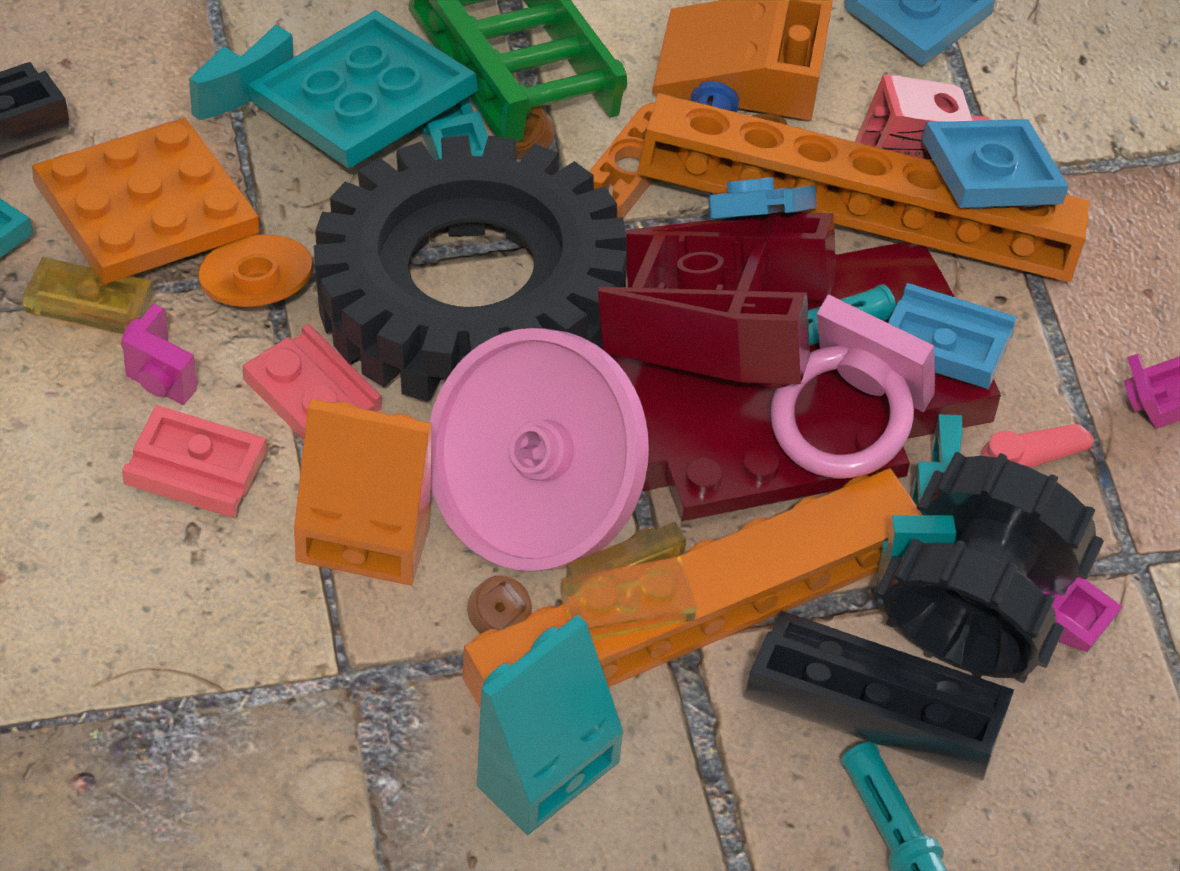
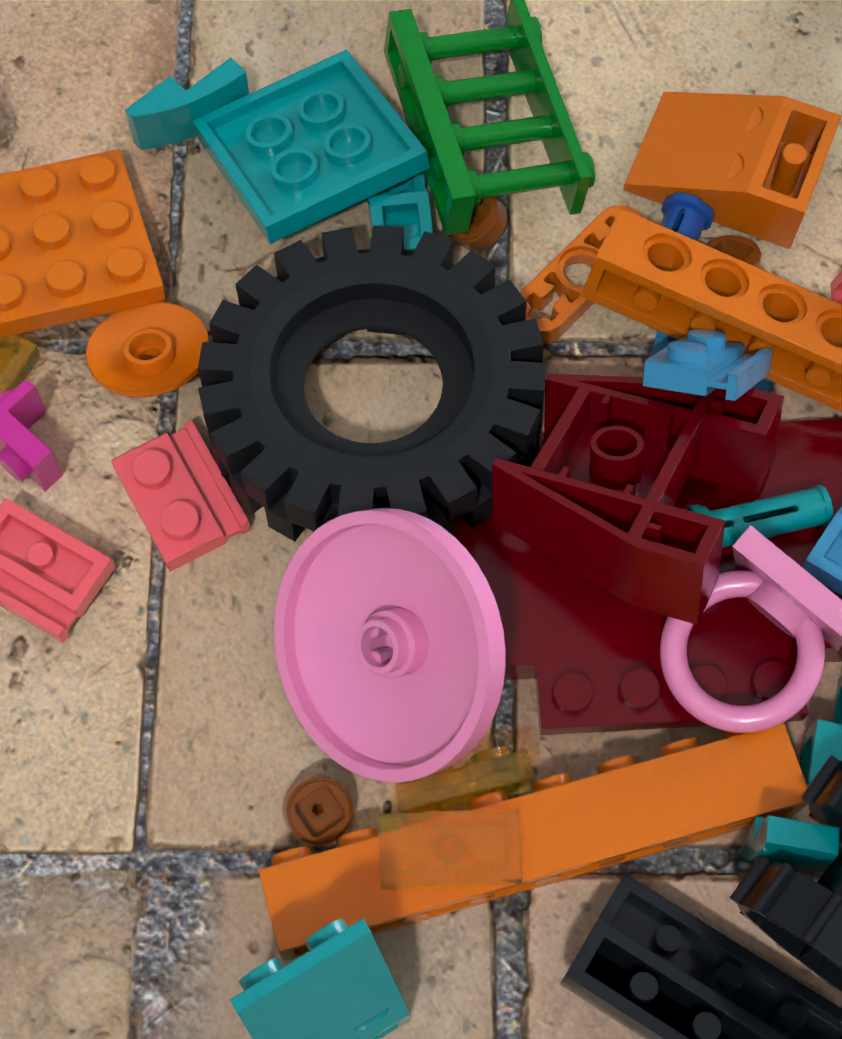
camera: 15 degrees right, 15 degrees up
(363, 491) = (186, 662): orange slope -> none

